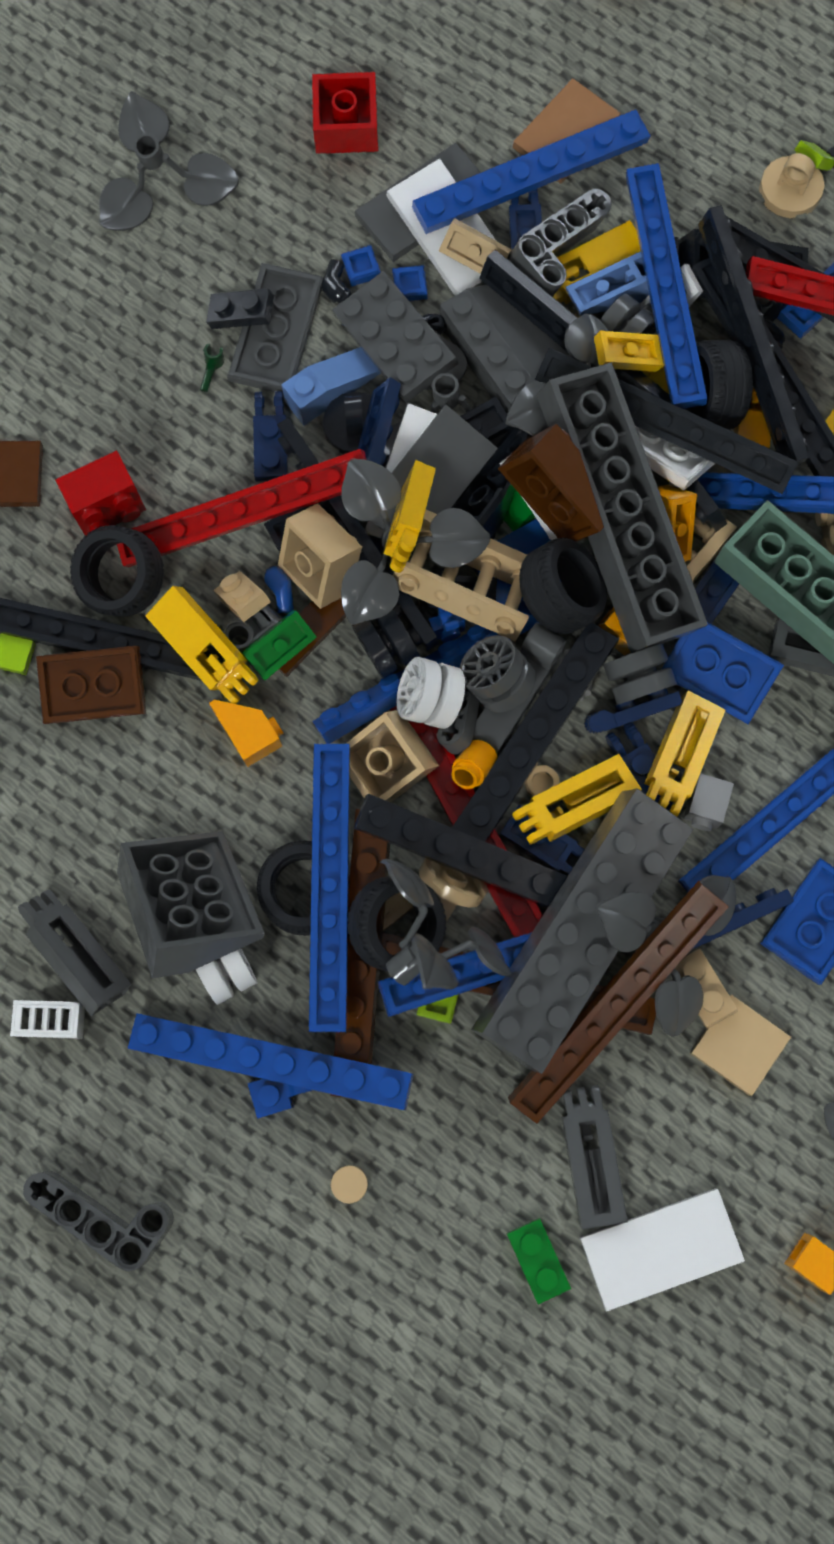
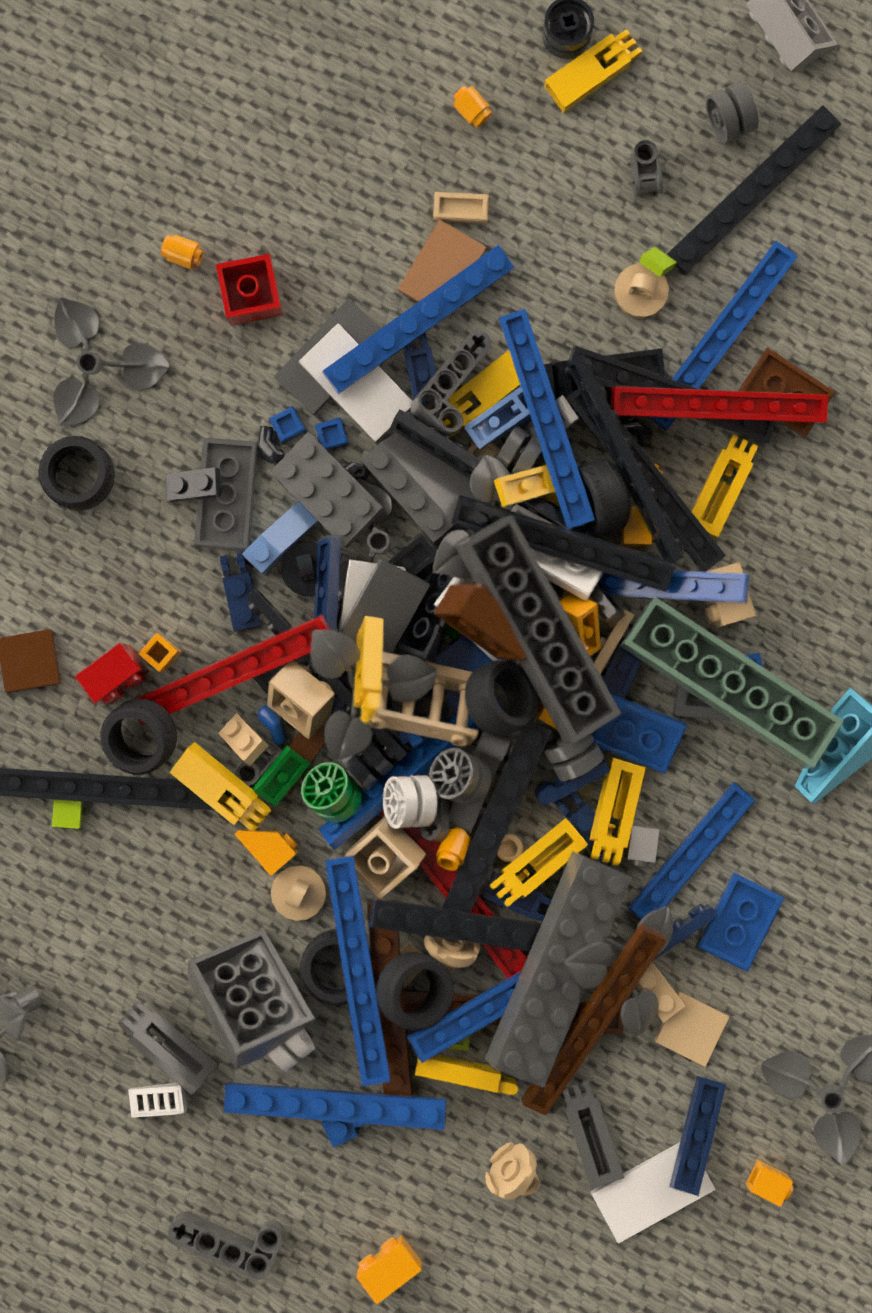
camera: 10 degrees left, 10 degrees up
(91, 684) = (136, 831): reddish brown tile -> none
(98, 248) = (51, 460): none -> black tyre
(163, 482) = (160, 653): none -> light orange brick
(212, 363) = (178, 535): dark green hand -> none
(273, 793) = (298, 892): none -> tan tile
(277, 67) = (182, 251): none -> light orange brick
(299, 1291) = (388, 1268): none -> light orange brick
(336, 673) = (331, 792): none -> green wheel
(349, 1184) = (411, 1183): tan tile -> none
(421, 955) = (448, 1038): dark grey plant -> none
(441, 1048) = (466, 1073): none -> yellow hinge
(470, 246) = (380, 402): tan plate -> none
(482, 1187) = (512, 1172): none -> tan tile
(538, 1261) = (562, 1214): green plate -> none
(599, 72) = (461, 207): none -> tan tile
(730, 1183) = (697, 1136): none -> dark blue plate
(815, 58) = (646, 174): none -> dark grey piece

